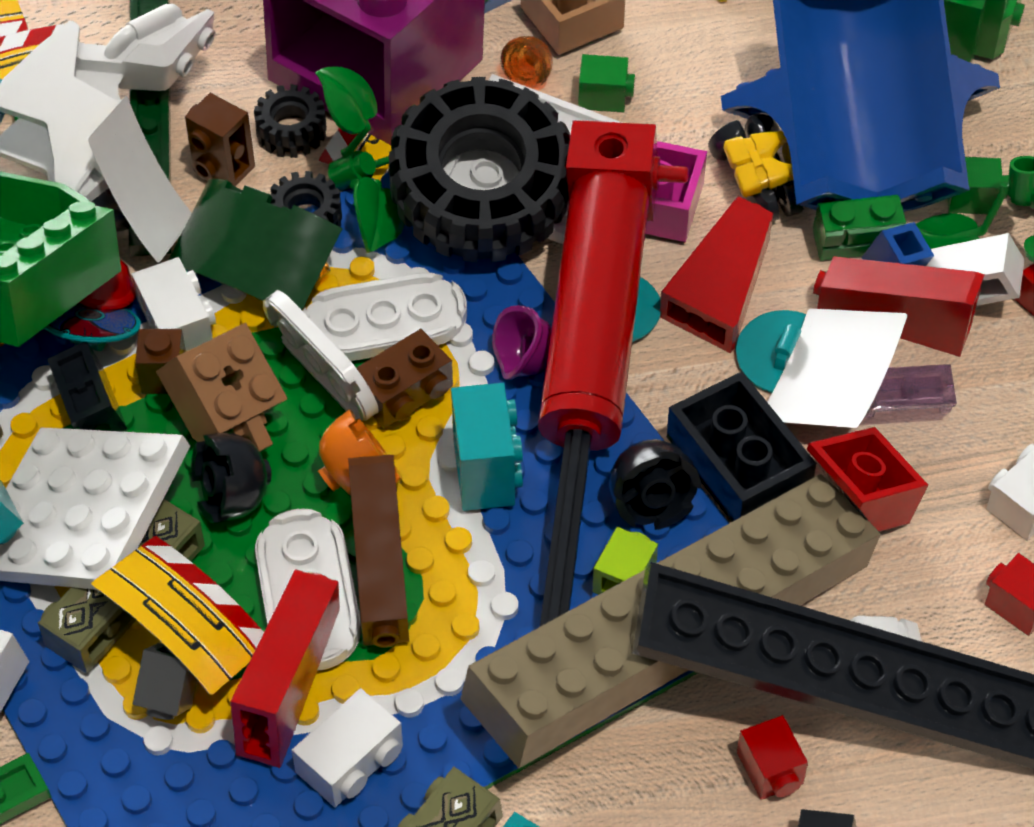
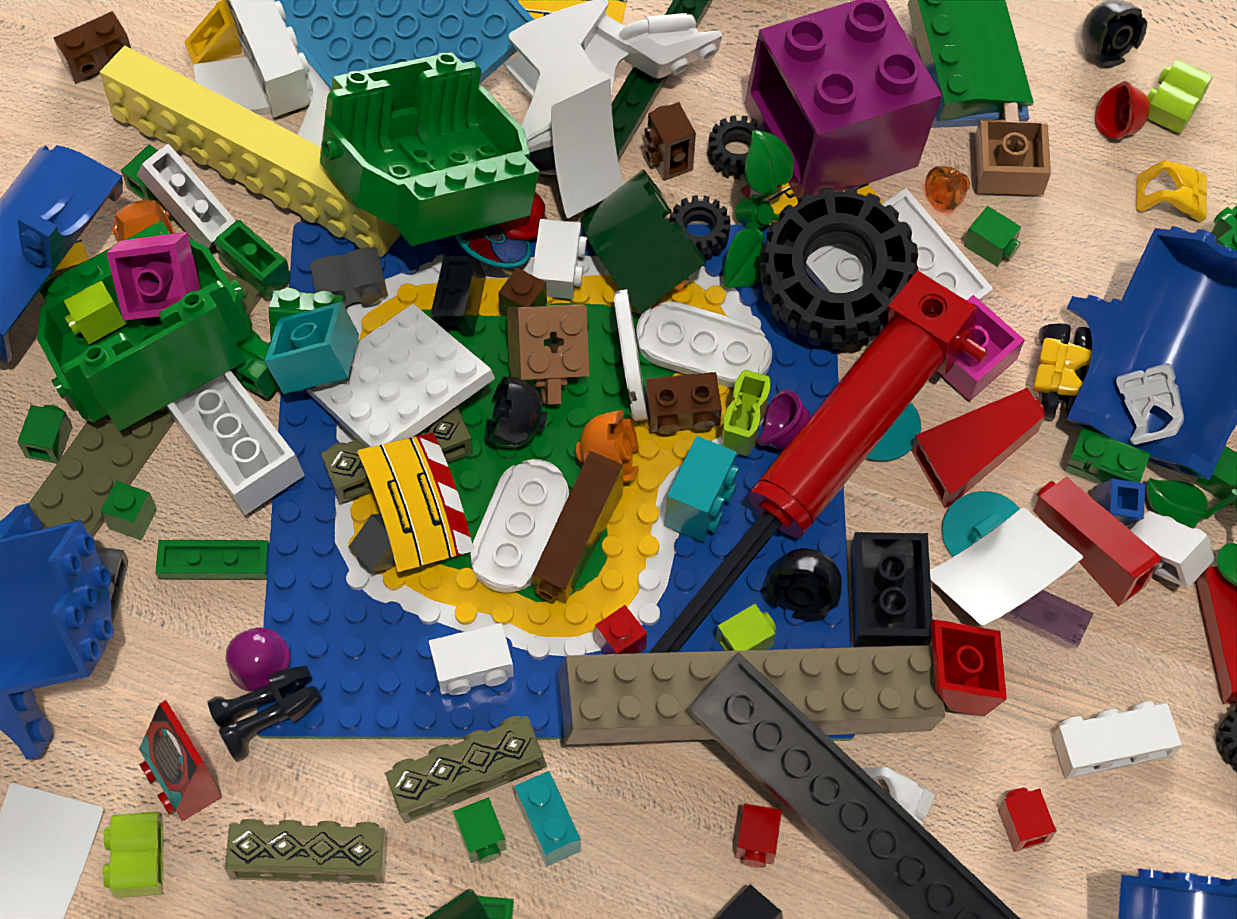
camera: 30 degrees right, 10 degrees up
(284, 668) = (461, 577): red slope -> none
(474, 345) = (745, 412): none -> lime brick
(493, 628) = (620, 633): none -> red brick
(860, 134) = (1150, 389): none -> white piece

